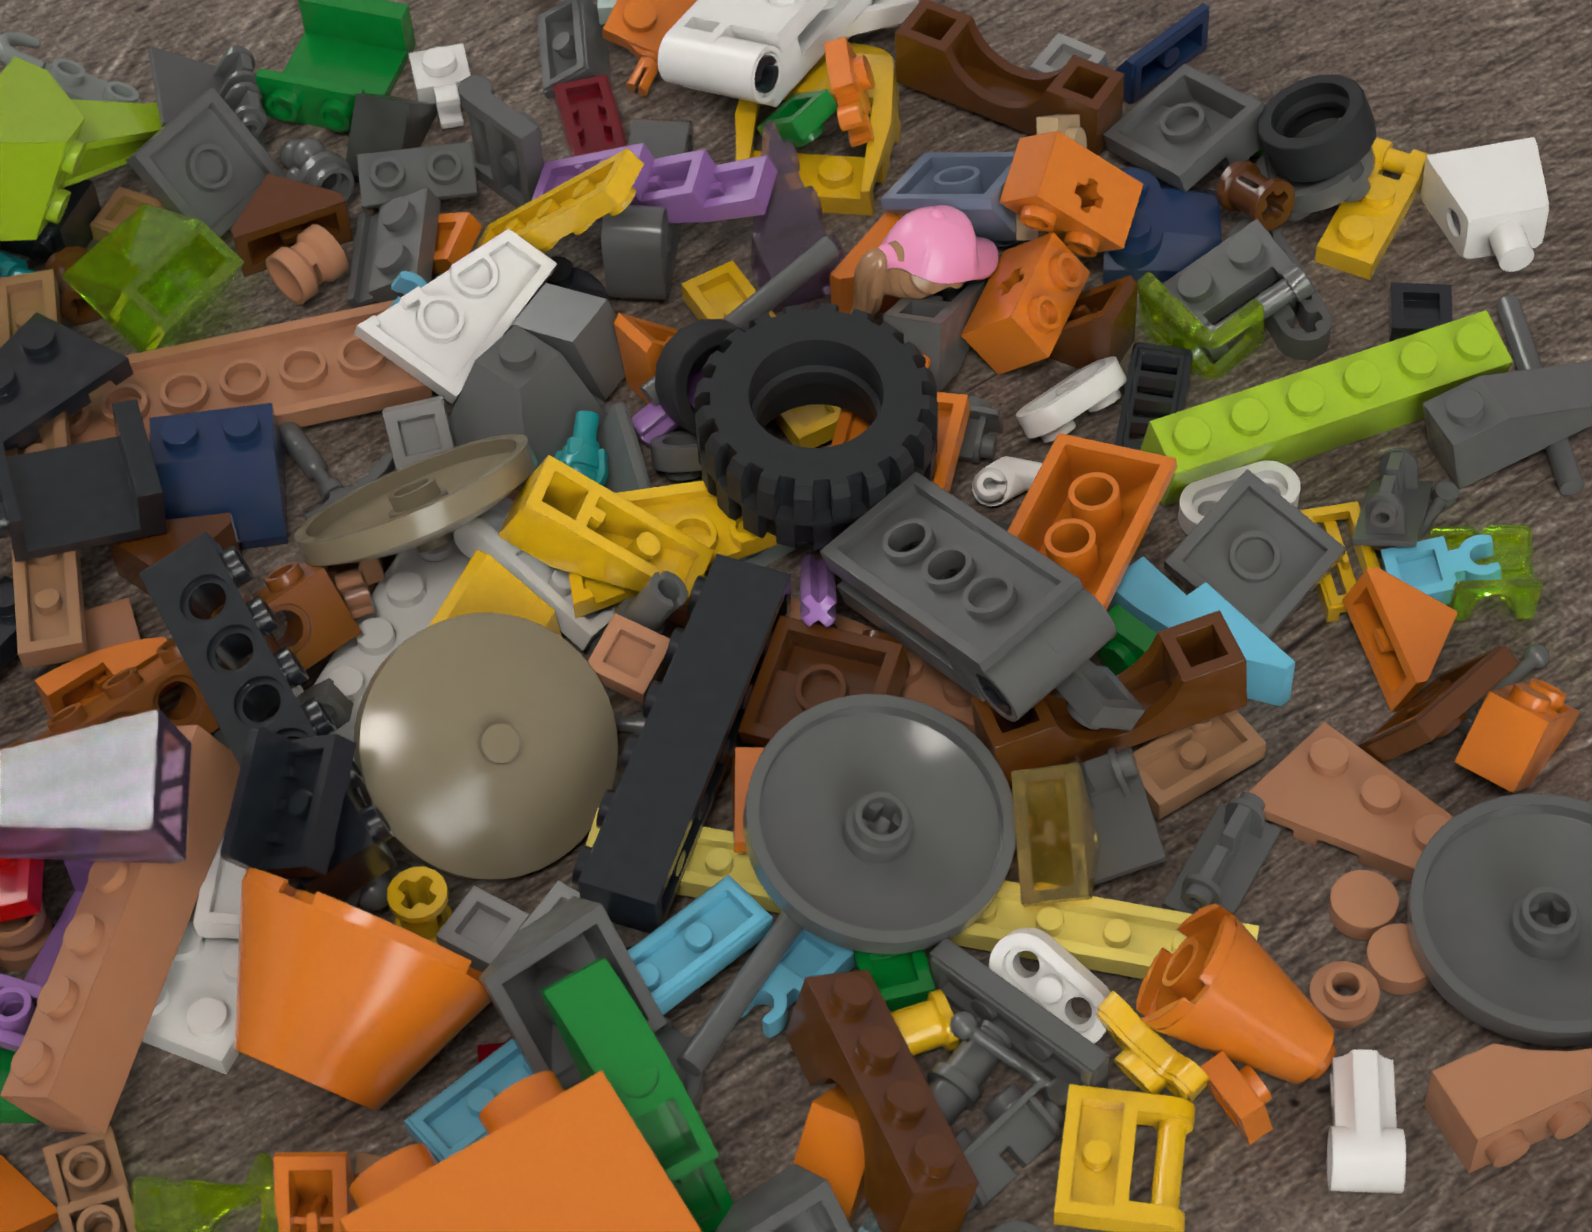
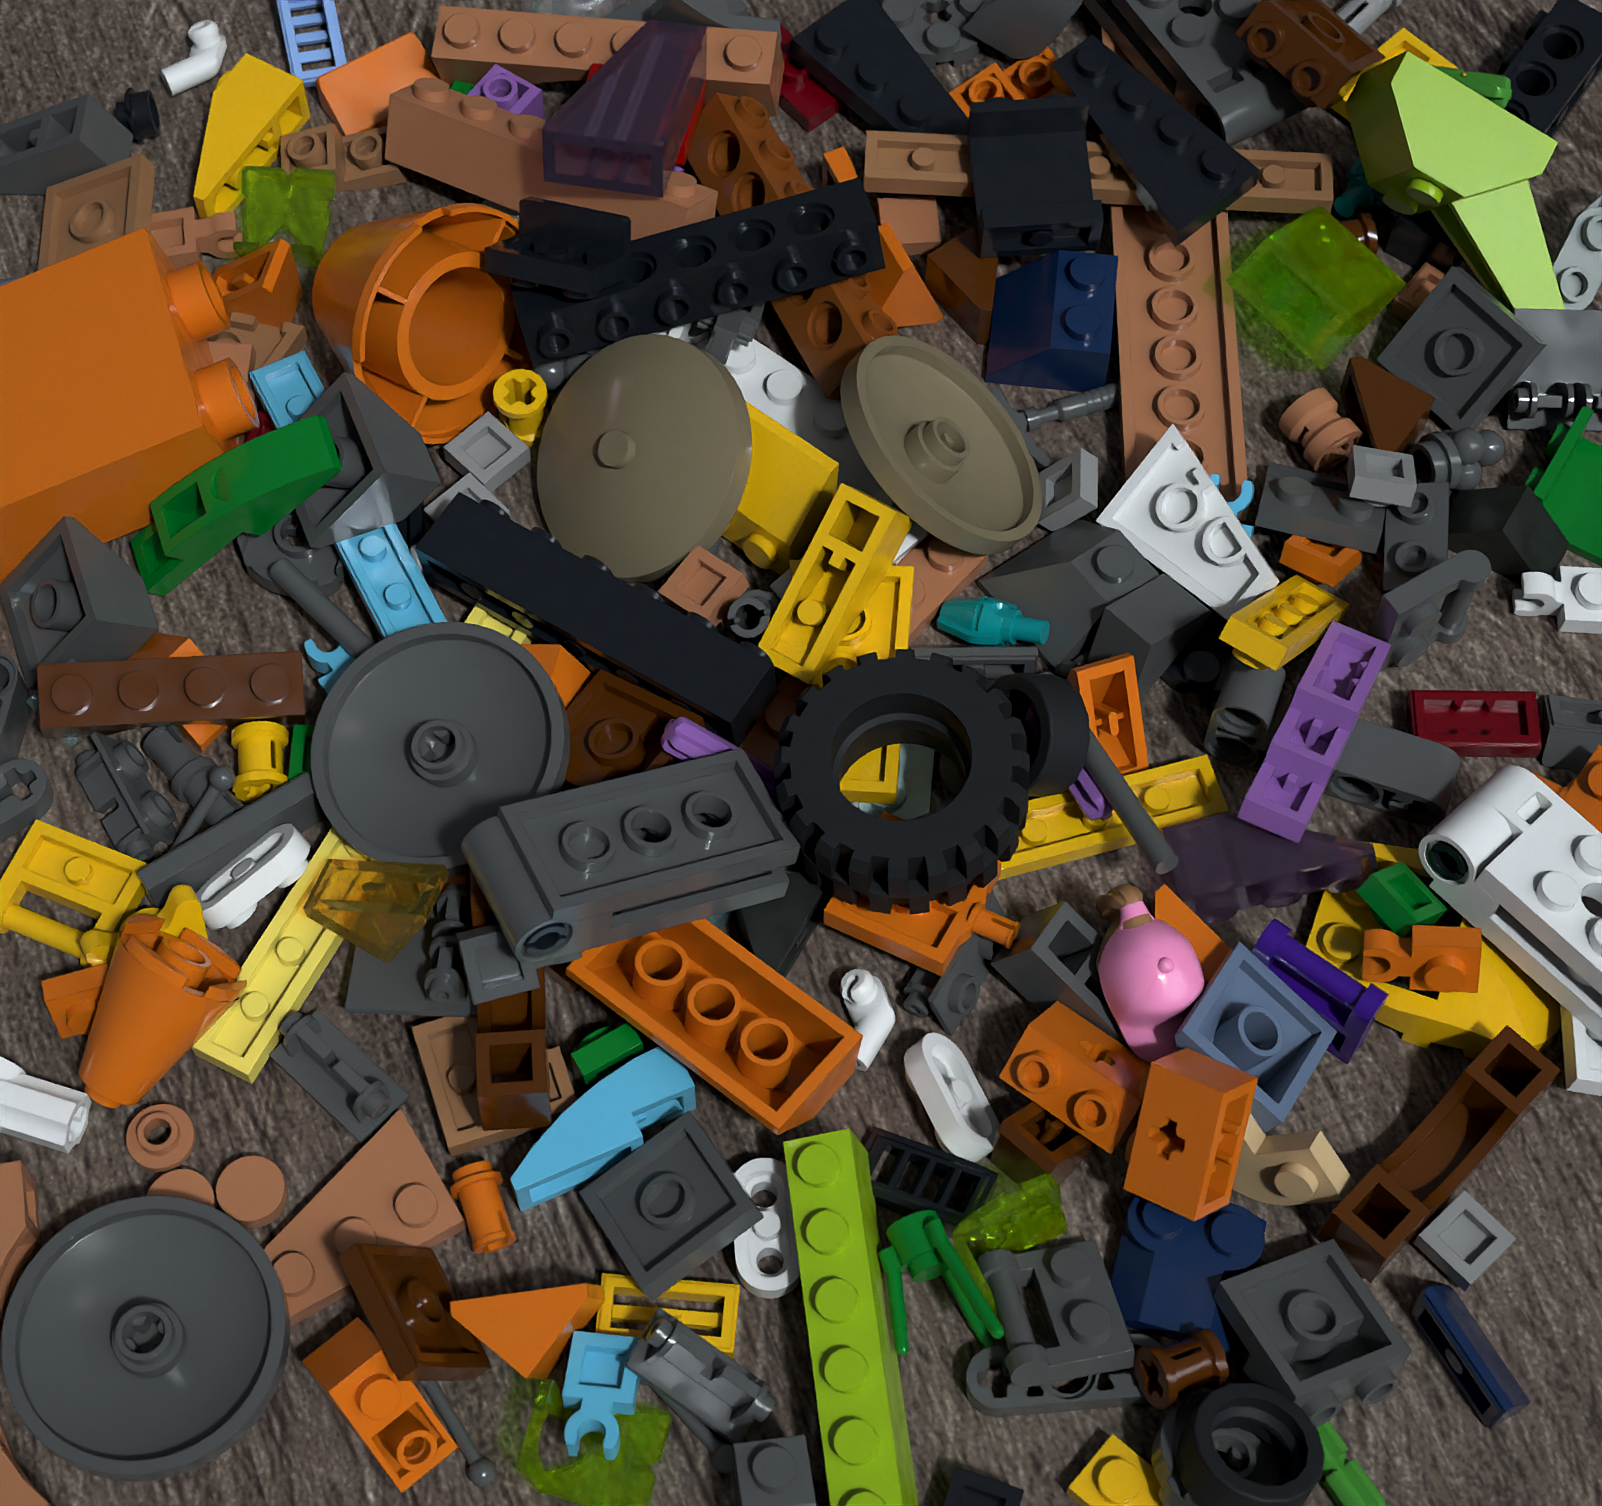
camera: 100 degrees right, 10 degrees up
(370, 189) = (1381, 476): none -> light grey plate
(898, 150) = (1325, 988): none -> dark purple plate
(1230, 373) = (925, 1252): none -> green plant
(1293, 718) = (483, 1206): none -> orange pin

